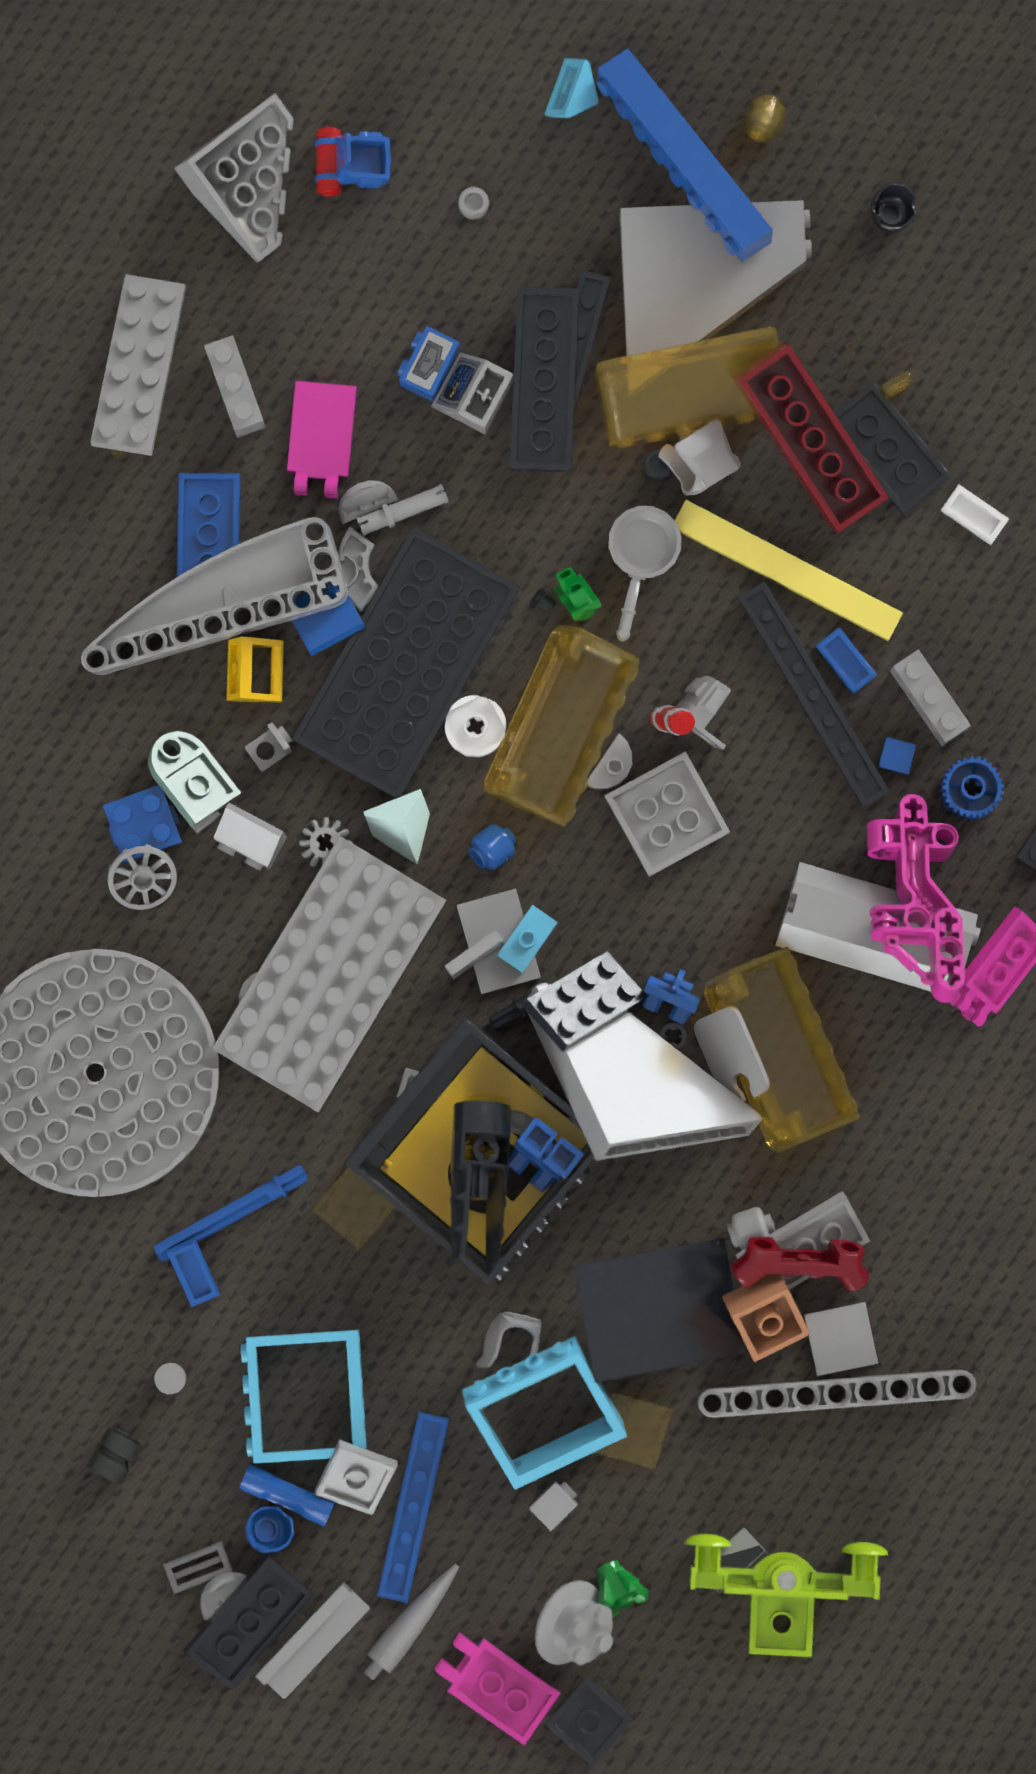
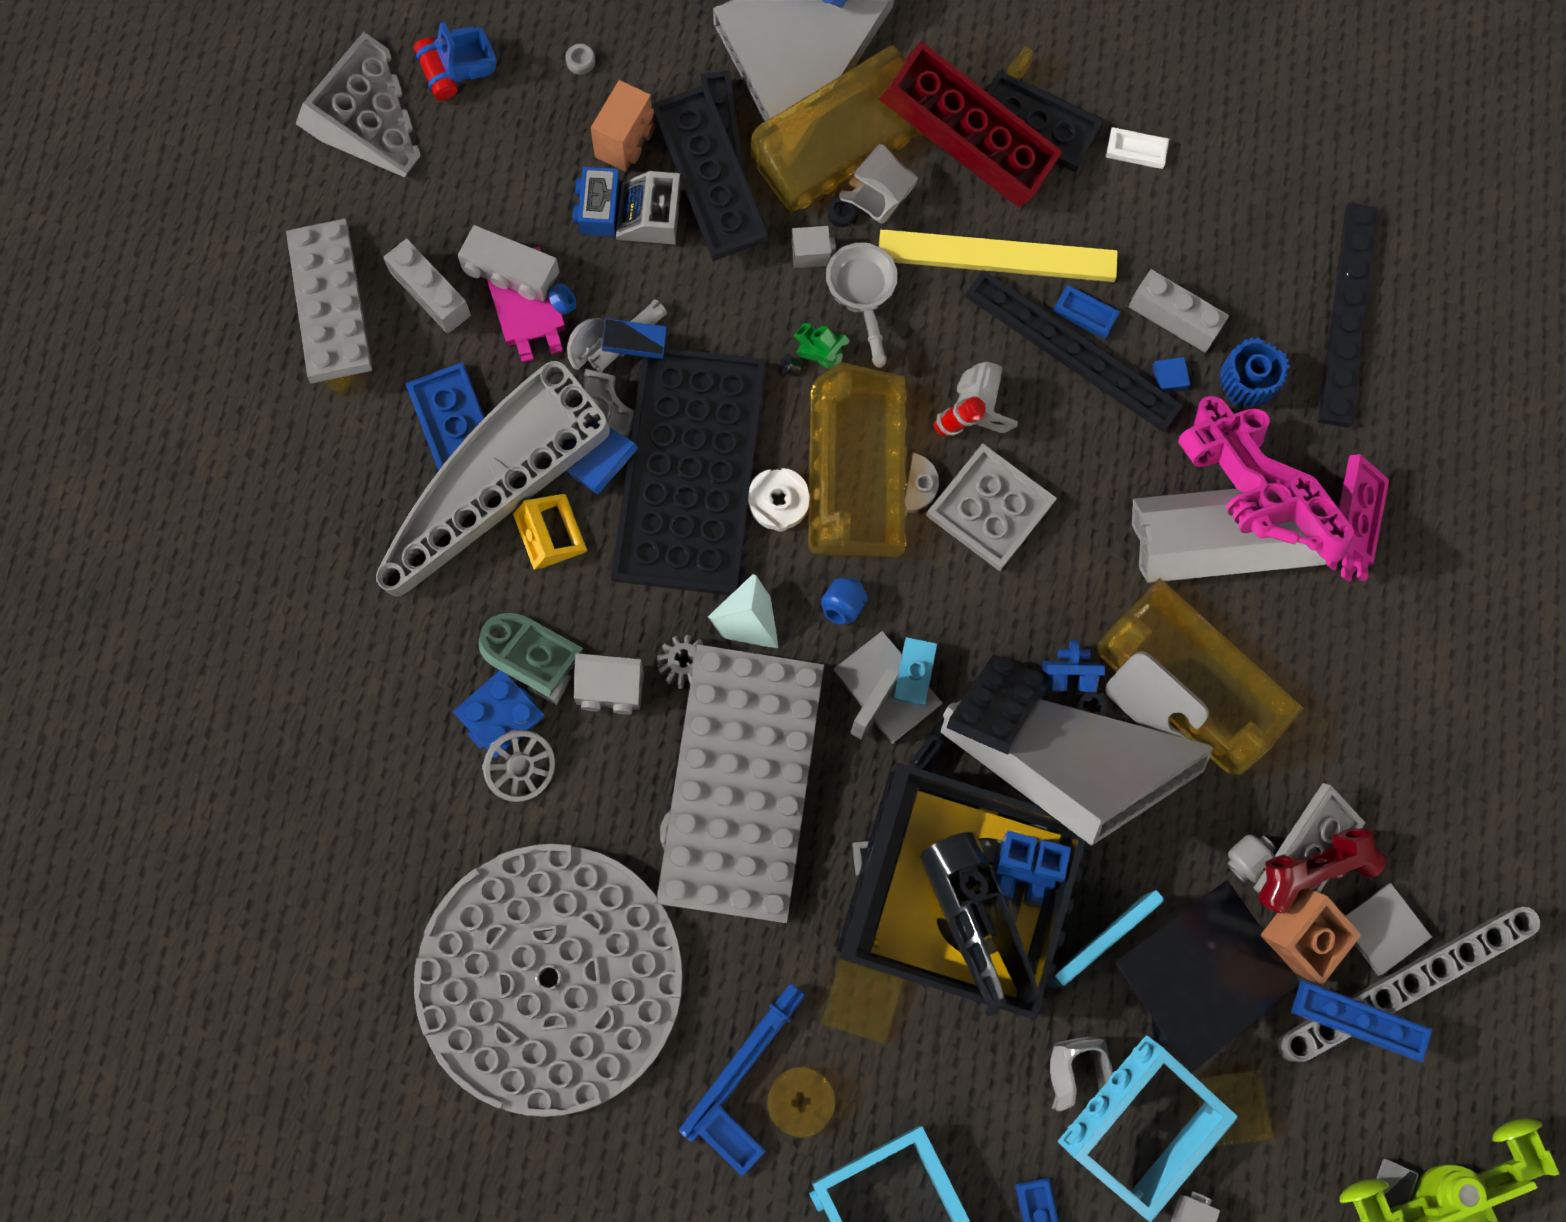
camera: 30 degrees left, 10 degrees down
(251, 1276) = (815, 1115): none -> clear yellow plate
(278, 738) = (598, 583): light grey bracket -> none
(317, 397) = (508, 264): none -> light grey brick
(355, 449) = (562, 298): none -> blue tile
(404, 519) = (634, 338): none -> tile
(482, 300) = (623, 126): none -> nougat brick
(584, 1243) = (1105, 938): none -> medium azure tile
(612, 492) = (812, 246): none -> light grey brick
(773, 1405) = (1361, 1021): none -> blue tile

